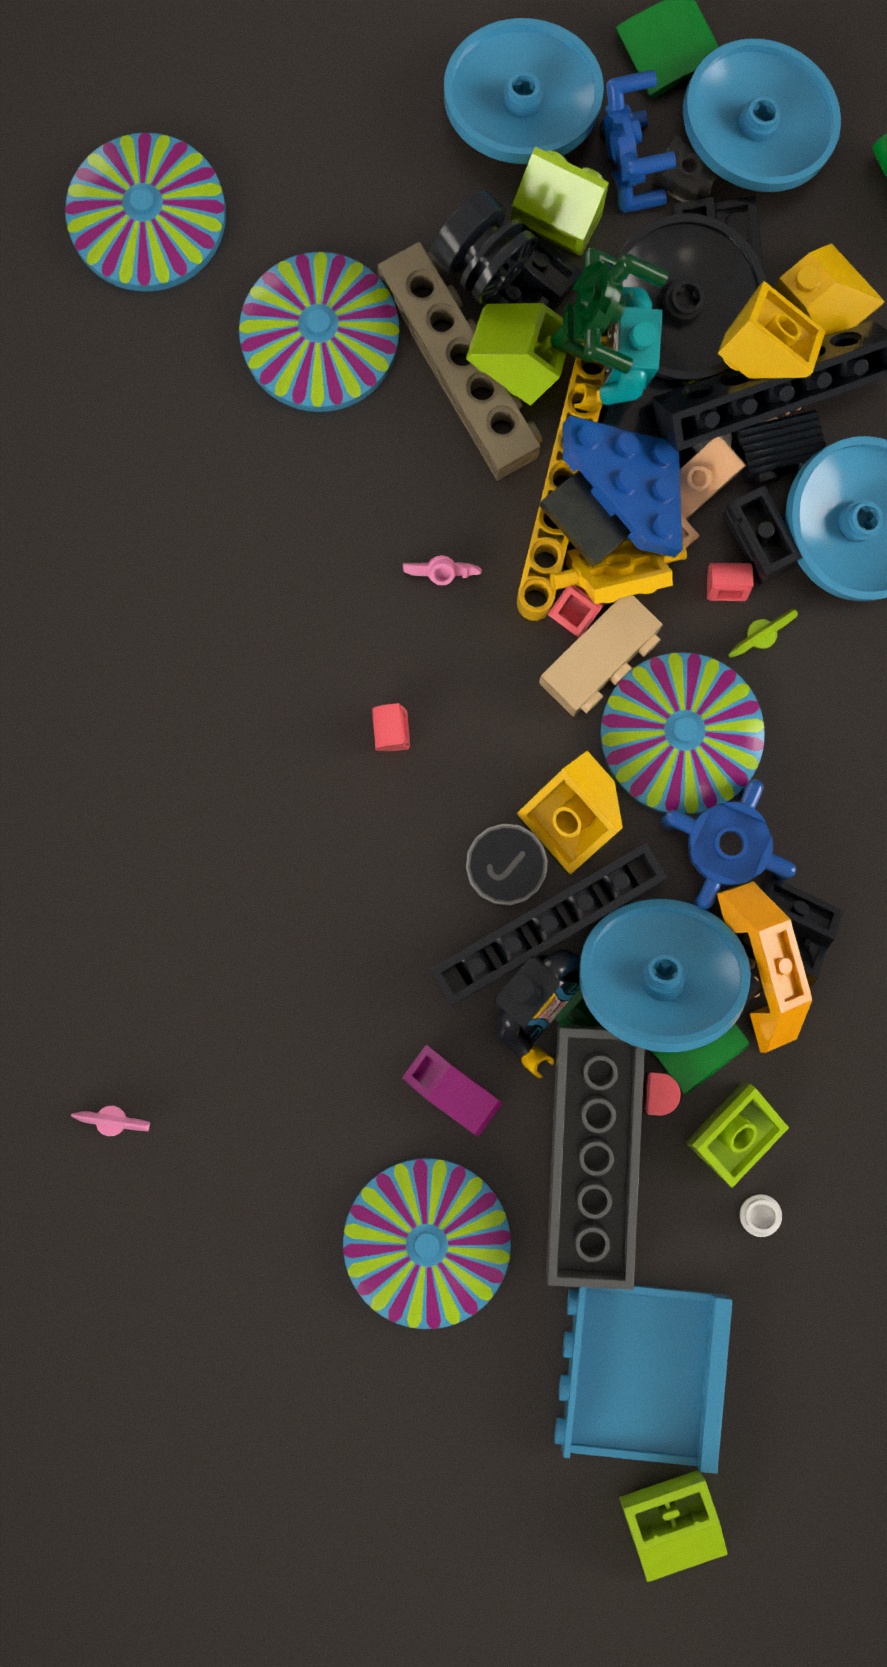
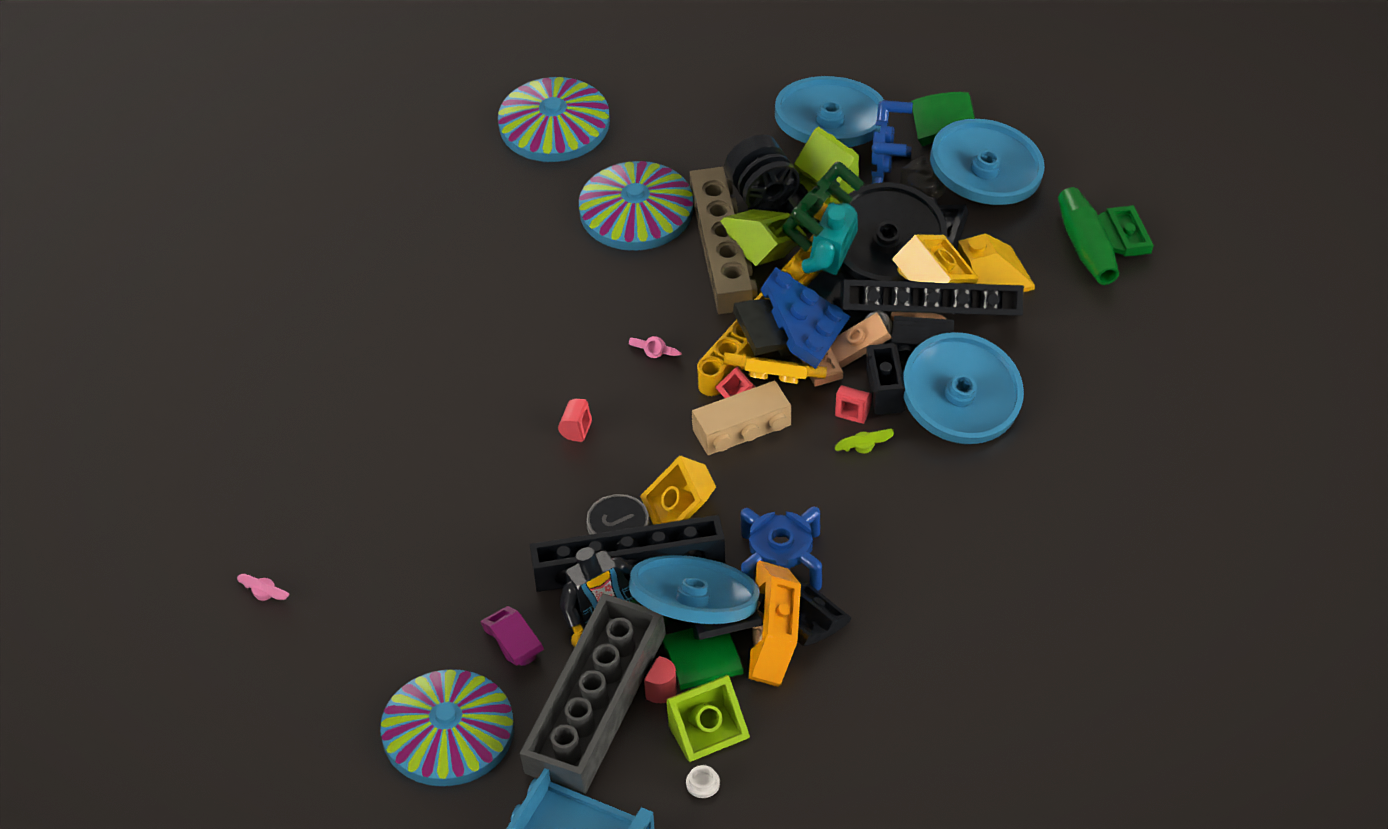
camera: 25 degrees right, 35 degrees down
(682, 733) = (780, 476): dish -> none

